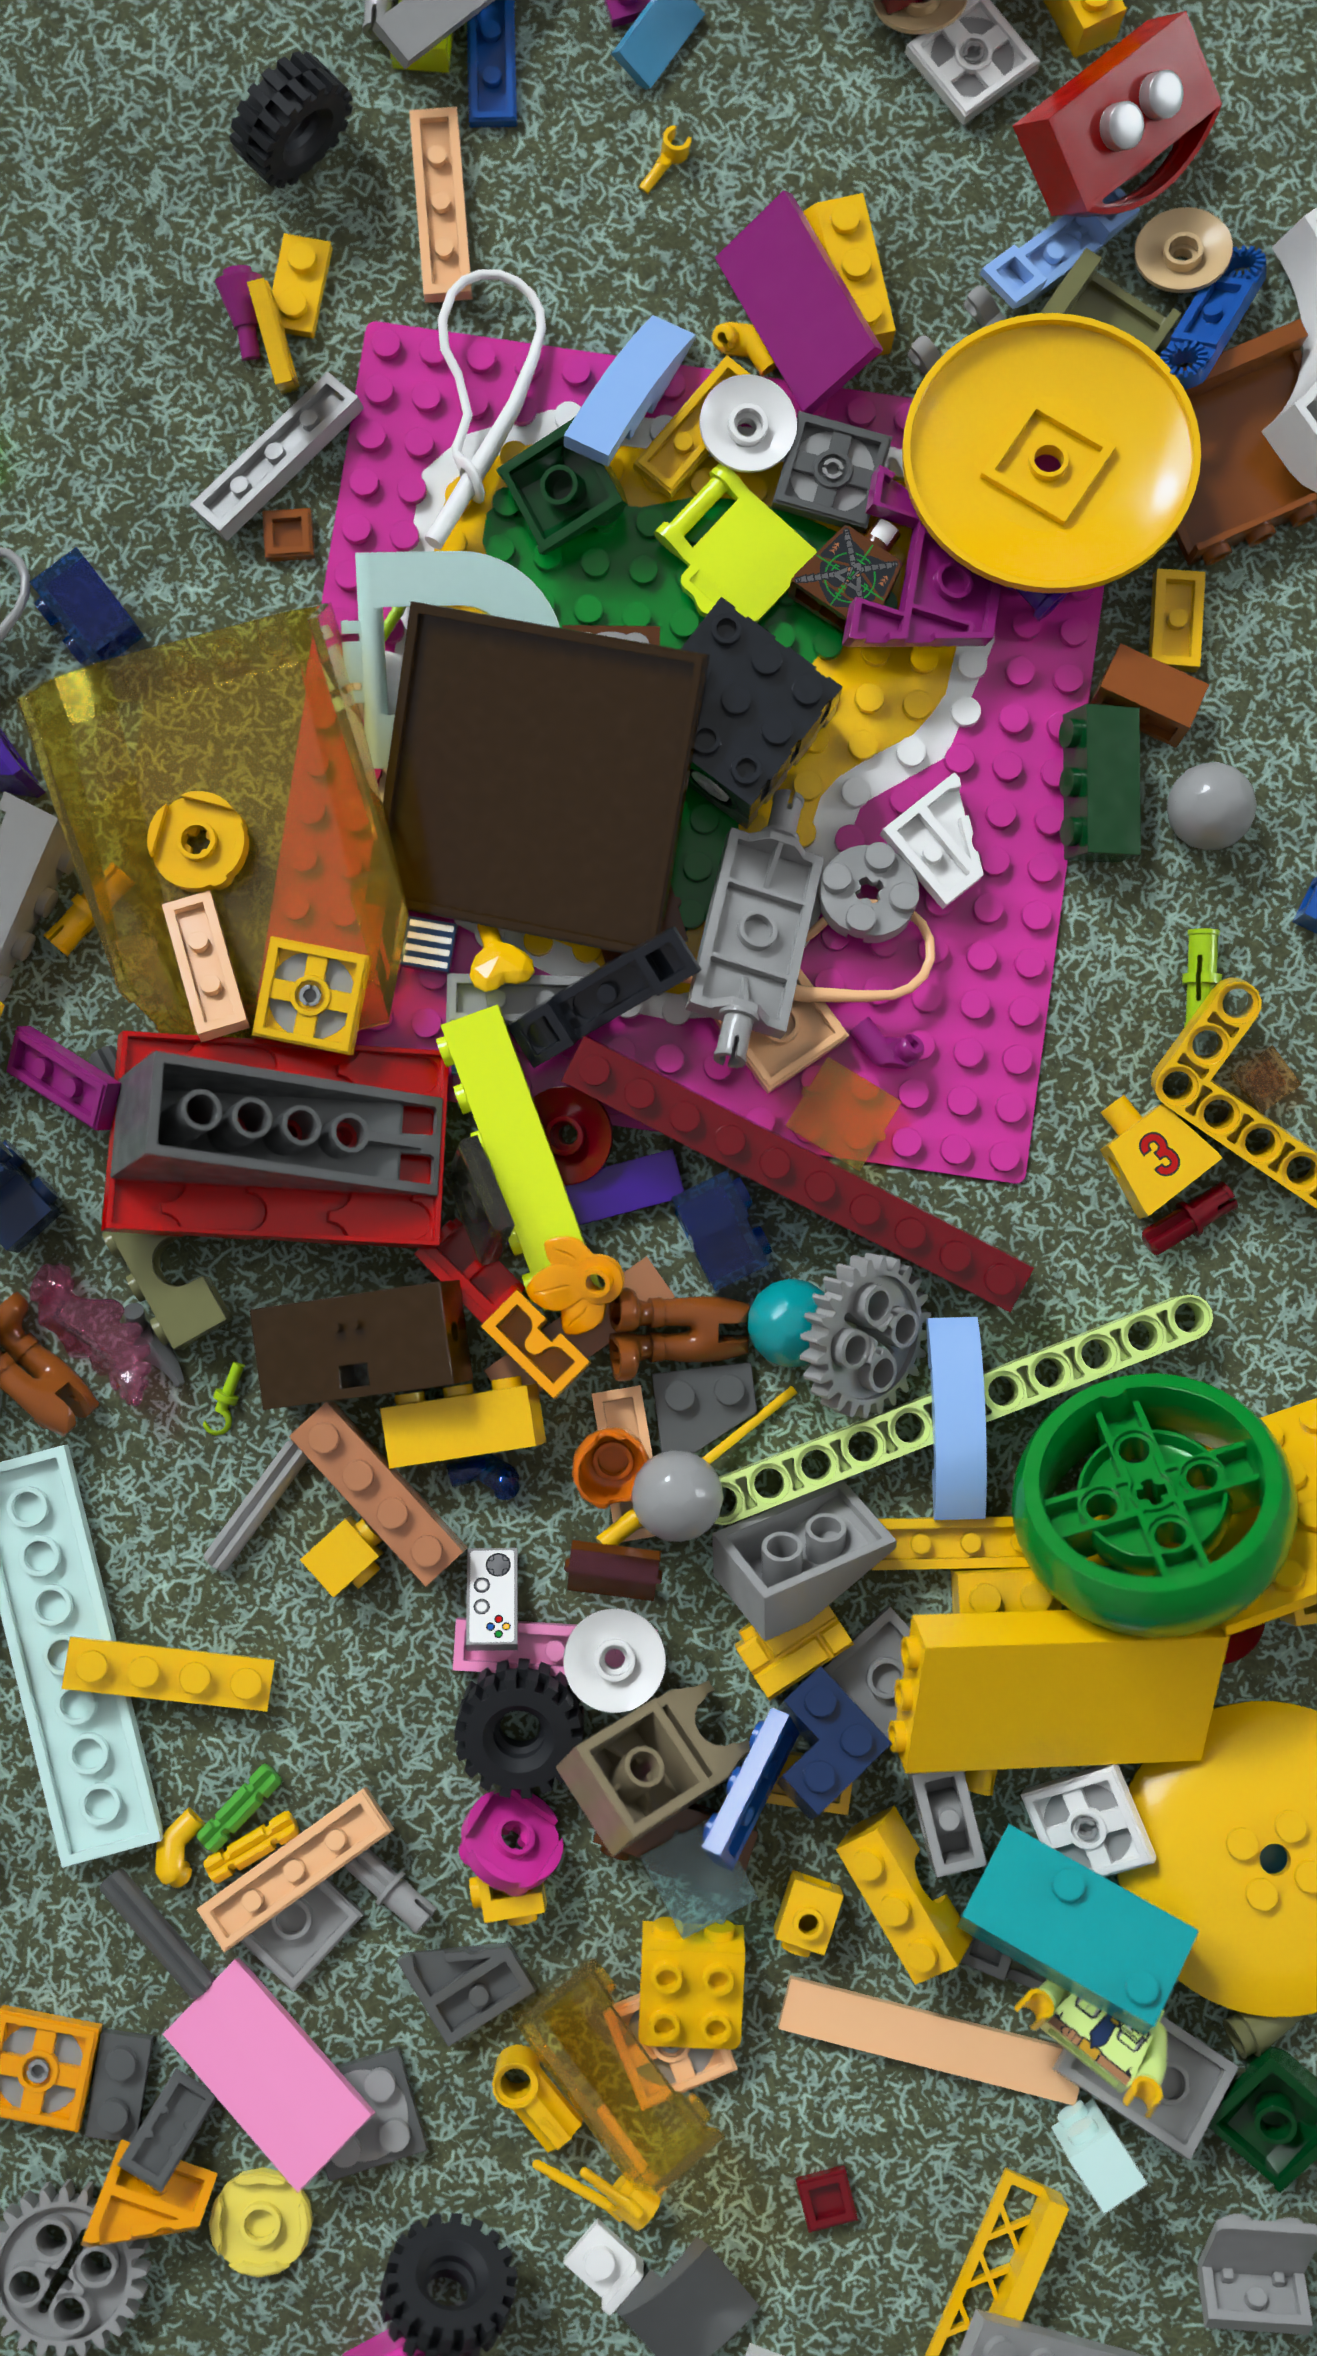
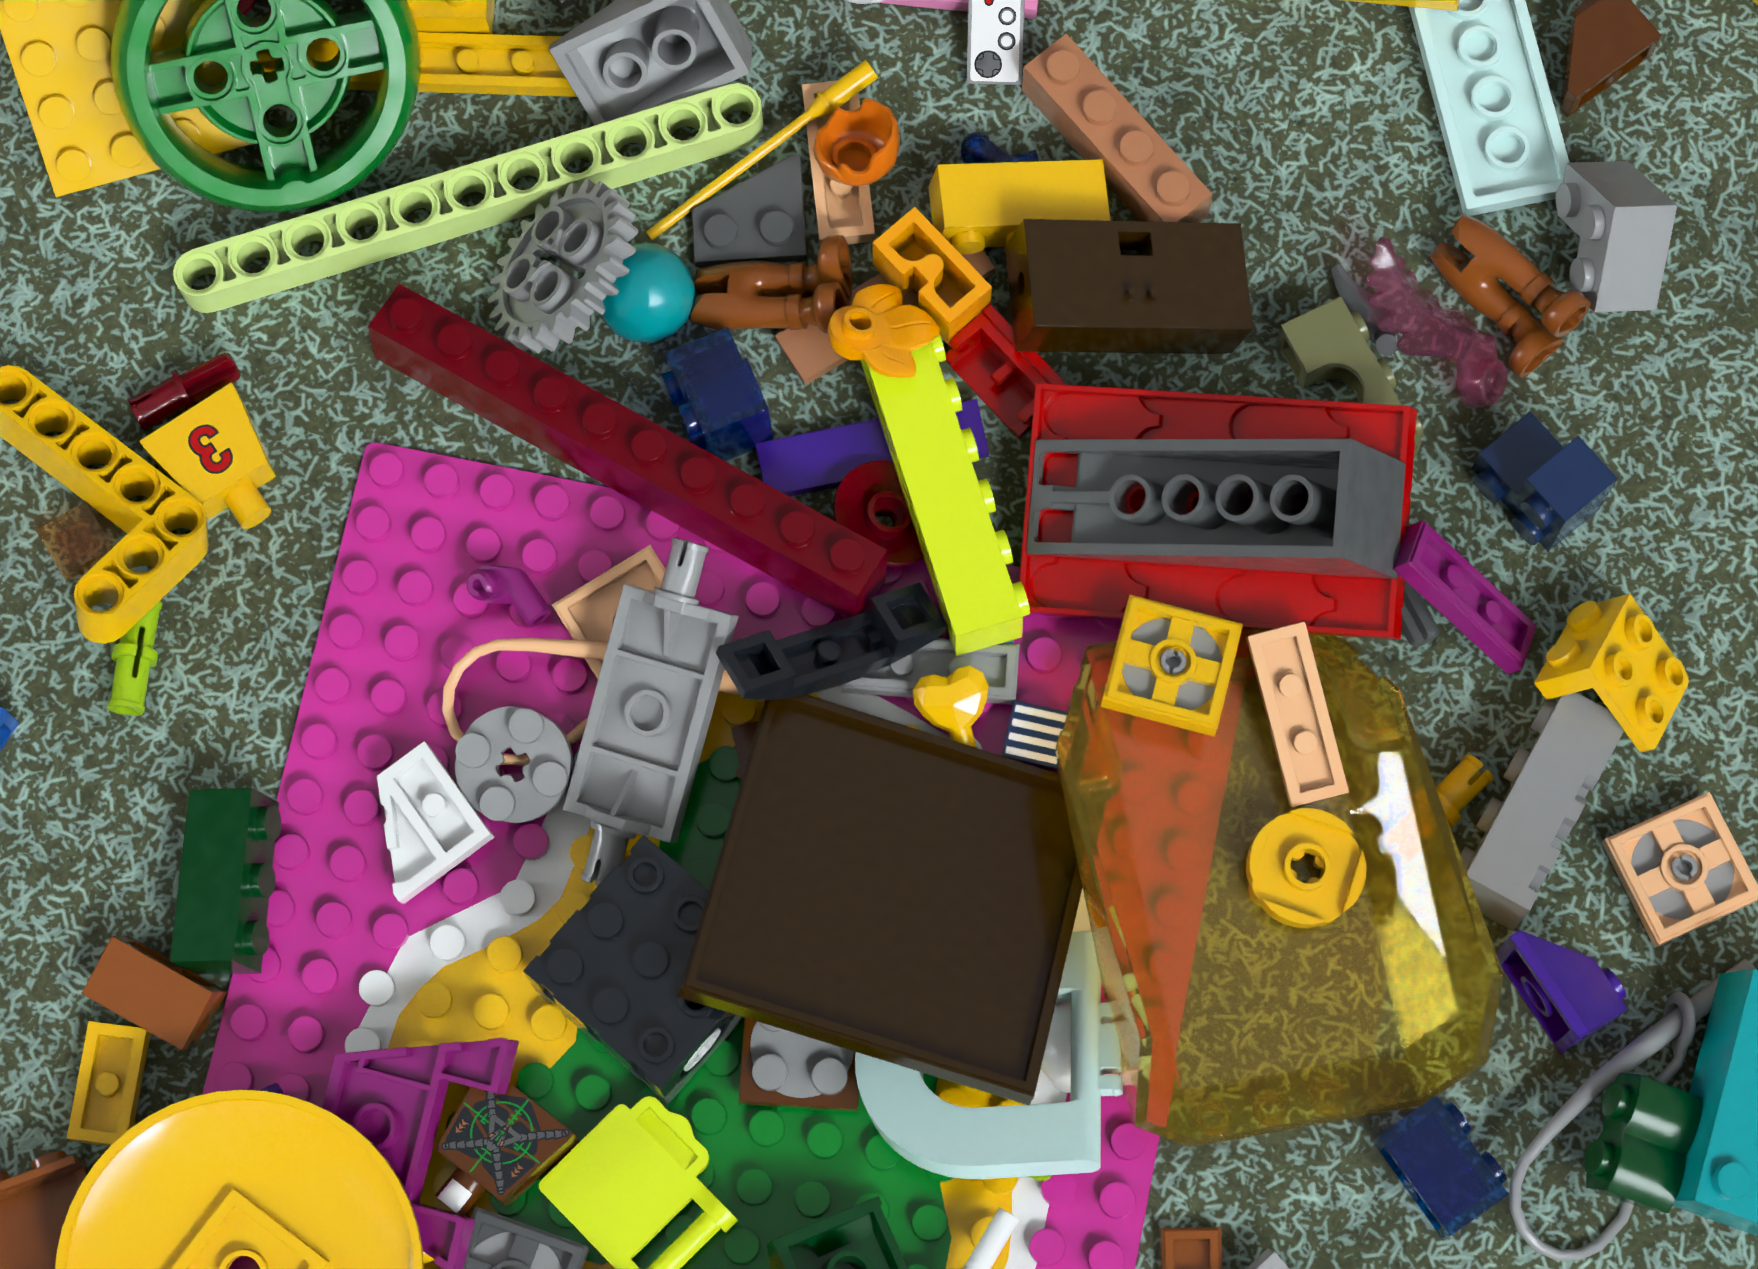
camera: 170 degrees left, 10 degrees down
(225, 1398) = (1285, 256): lime hand -> none
(255, 1507) = (1256, 138): light grey axle -> none
(345, 1556) = (1158, 78): yellow brick -> none
(479, 1201) = (988, 432): clear smoke tile -> none
(613, 1570) = (861, 47): reddish brown piece -> none
(677, 1496) = (784, 103): light grey piece -> none
(843, 1114) = (566, 522): piece -> none
(957, 1418) = (468, 186): light blue slope -> none
(1211, 806) = (97, 847): light grey piece -> none

